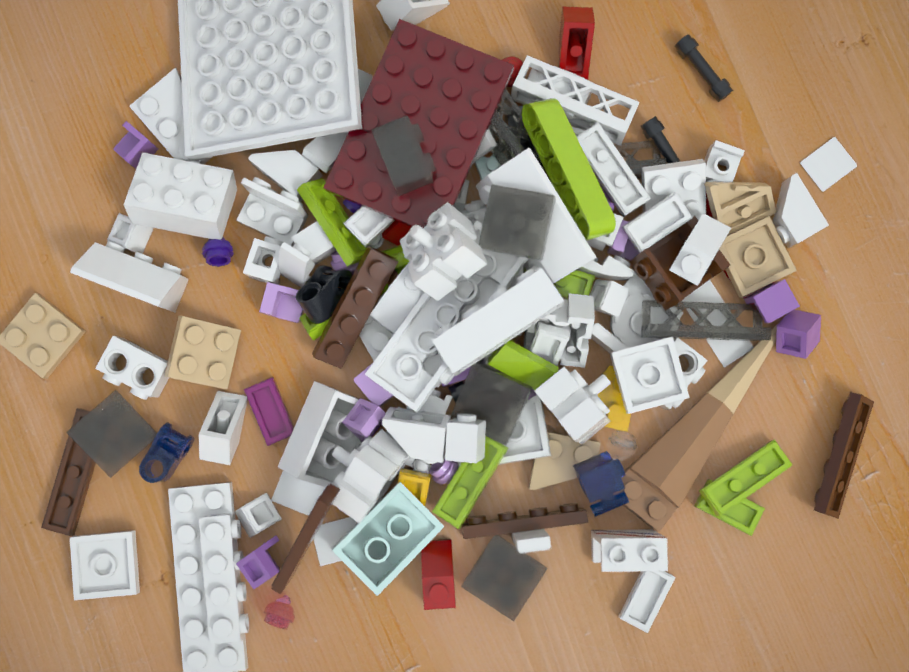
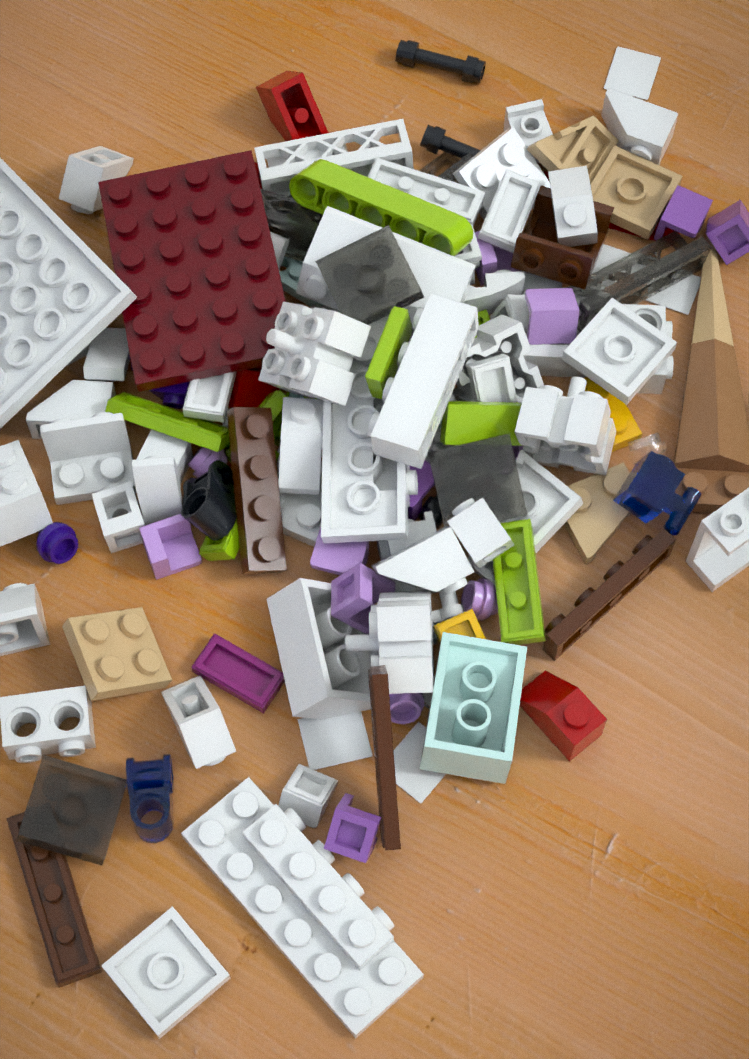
camera: 35 degrees left, 20 degrees down
(279, 613) = (415, 882): clear pink plate -> none
(403, 155) = (202, 289): clear smoke brick -> none
(490, 284) = (384, 360): none -> lime tile
(504, 577) = (633, 665): clear smoke plate -> none
(531, 541) = (629, 586): white tile -> none
(626, 318) = (552, 316): none -> lavender panel

